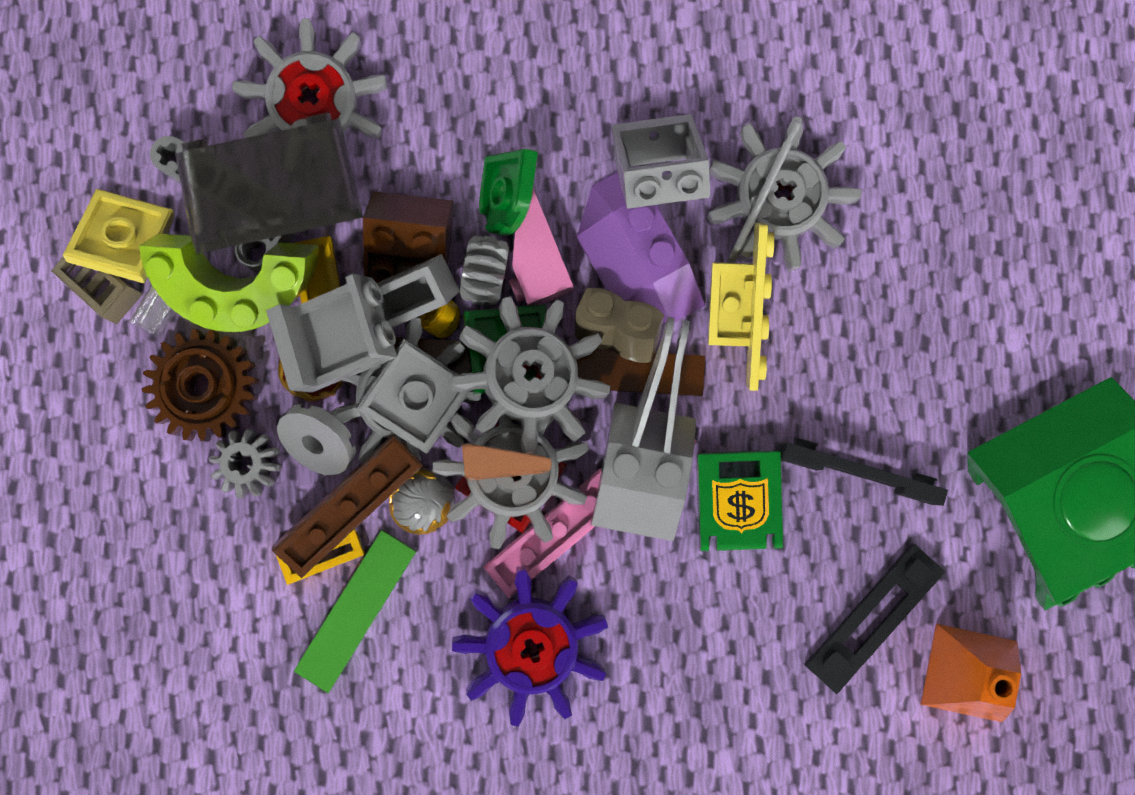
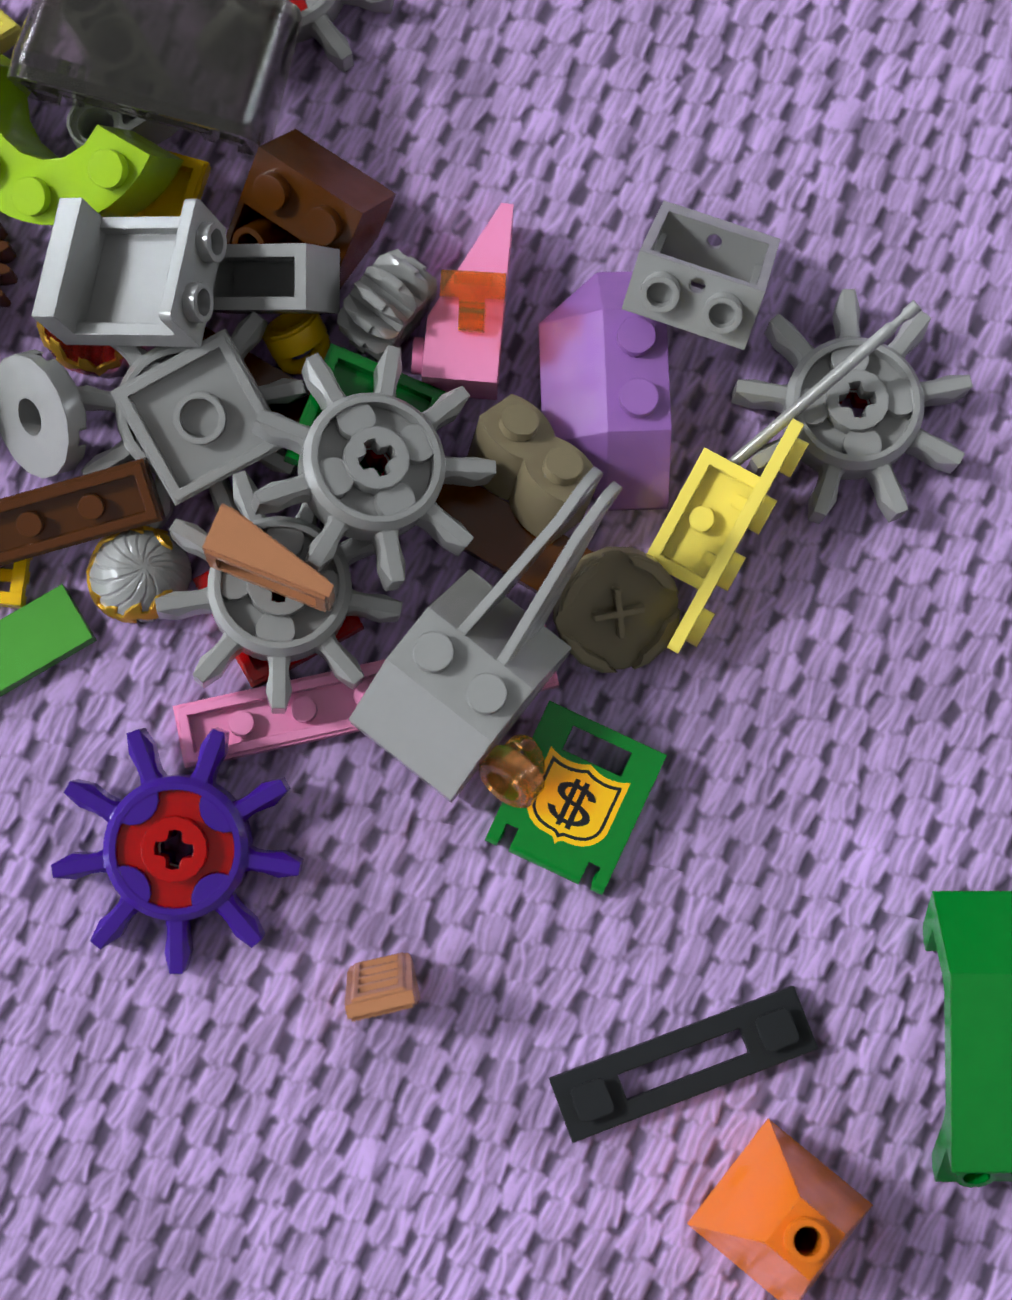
camera: 25 degrees right, 5 degrees down
(507, 190) = (476, 212): green tile -> none
(535, 241) = (473, 292): none -> clear orange tile
(689, 666) = (381, 986): none -> nougat slope
(704, 509) = (512, 775): none -> clear orange tile
(710, 381) = (617, 609): none -> dark tan tile
(918, 488) = (837, 909): black container -> none

